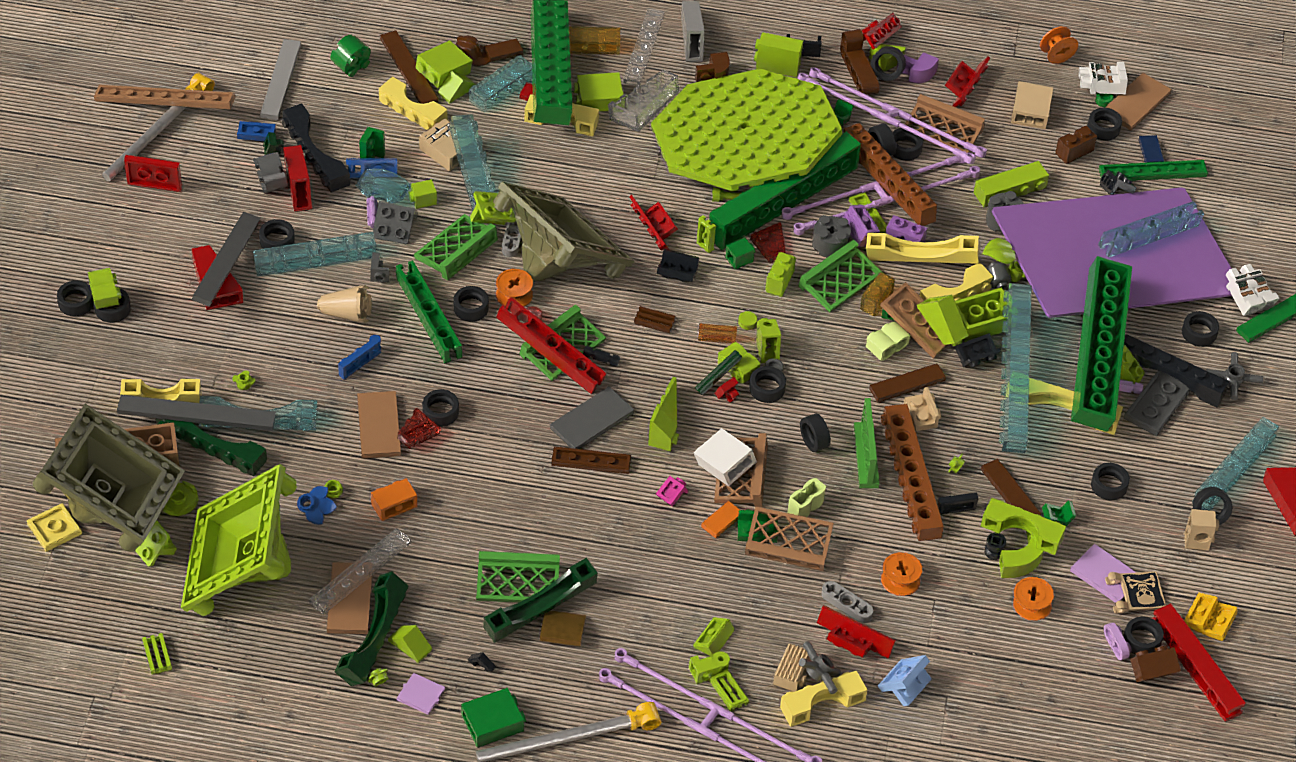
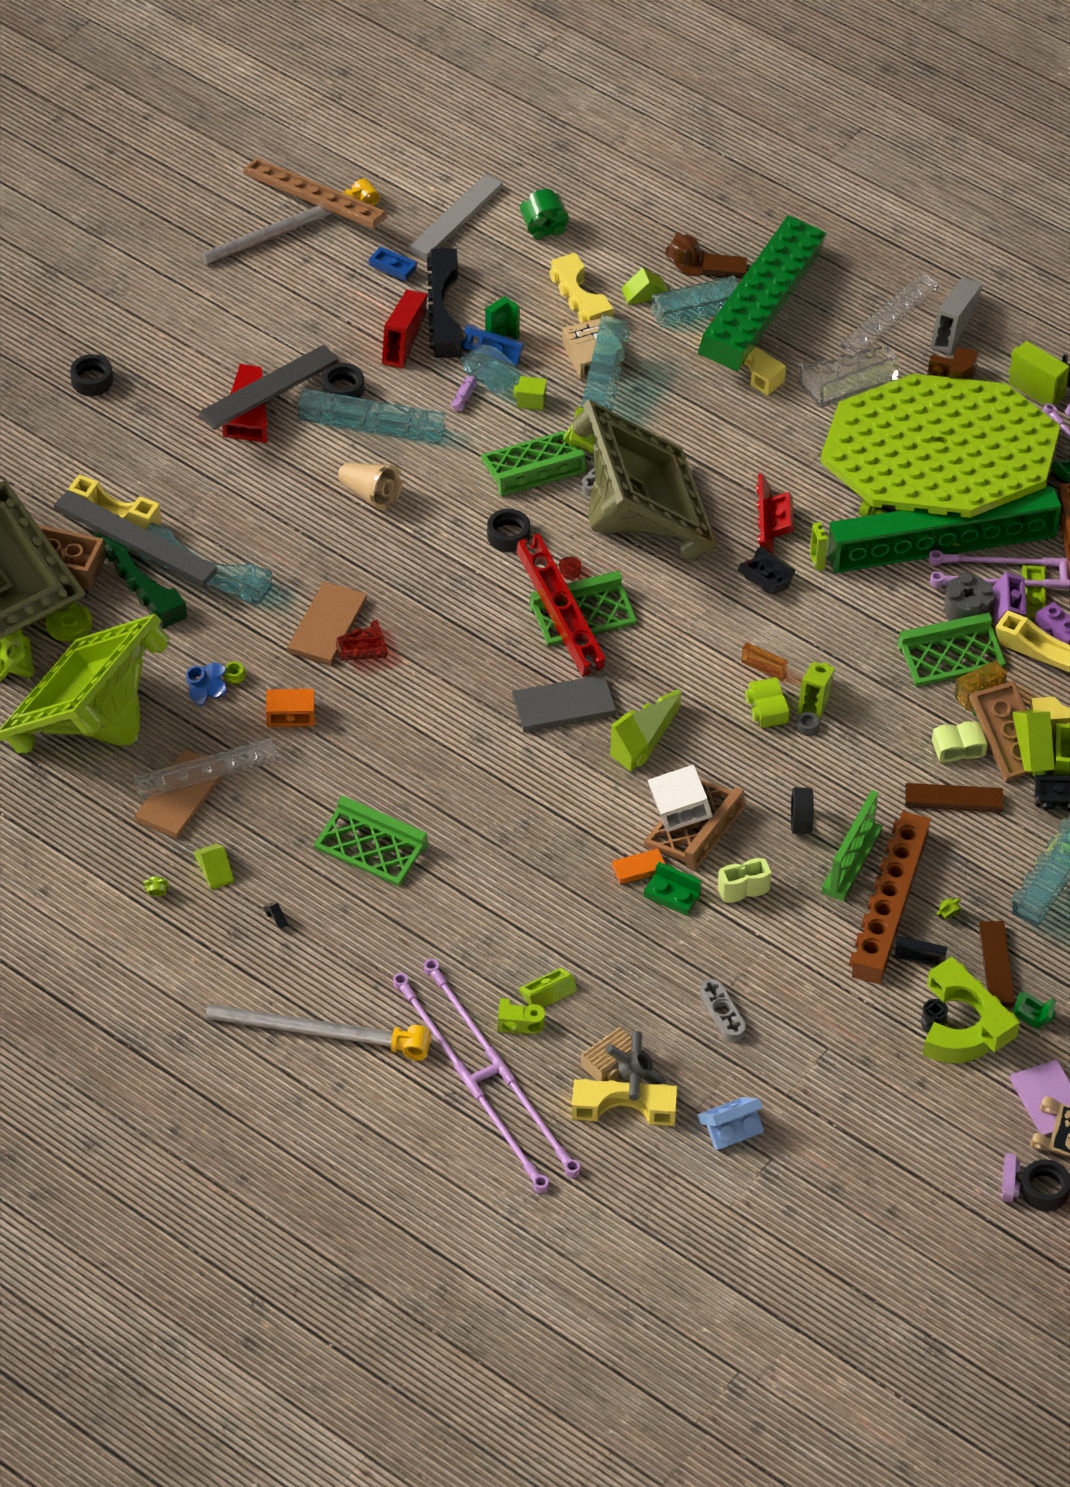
camera: 30 degrees right, 0 degrees up
(103, 288) = (120, 372): lime brick -> none
(118, 314) = (121, 383): black tyre -> none
(153, 173) = (250, 270): red tile -> none
(243, 380) = (213, 524): lime plate -> none
(270, 172) = (374, 310): dark grey brick -> none
(271, 144) = (400, 284): dark green tile -> none
(360, 357) = (350, 543): blue plate -> none
(377, 271) = (428, 456): dark grey bracket -> none
(389, 594) = (220, 802): dark green arch -> none
(394, 222) = (478, 412): dark grey bracket -> none
(407, 67) = (605, 250): reddish brown tile -> none
(420, 693) = (192, 922): lavender piece -> none
(428, 311) = (455, 522): green piece -> none
(441, 60) = (640, 252): lime brick -> none
(441, 396) = (402, 616): black tyre -> none
(493, 717) = (249, 976): green brick -> none
(514, 284) = (566, 530): orange piece -> none
(562, 628) = (385, 912): pearl gold slope -> none
(571, 583) = (422, 867): dark green arch -> none
(591, 460) = (534, 747): reddish brown tile -> none
(594, 40) = (834, 288): clear yellow brick -> none
(598, 90) = (800, 344): lime brick -> none
(601, 356) = (617, 638): black axle -> none
(656, 318) = (707, 619): reddish brown tile -> none
(672, 490) = (601, 812): dark pink bracket -> none
(718, 372) = (735, 703): dark green axle -> none
(728, 390) = (736, 727): red tile -> none
(736, 703) = (527, 1069): lime tile -> none
(740, 253) = (849, 582): green brick -> none
(747, 320) = (809, 656): lime tile -> none
(769, 241) = (895, 583): clear red wing -> none
(771, 373) = (783, 752): black tyre -> none
(780, 274) = (880, 622): lime brick -> none
(783, 554) = (679, 927): medium nougat fence -> none
(853, 635) = (703, 1049): red bracket -> none
(901, 574) = (807, 1016): orange piece -> none
(923, 410) = (949, 834): tan bracket -> none
(1036, 588) = (940, 1091): orange piece -> none
(1155, 664) = (1036, 1220): reddish brown brick -> none

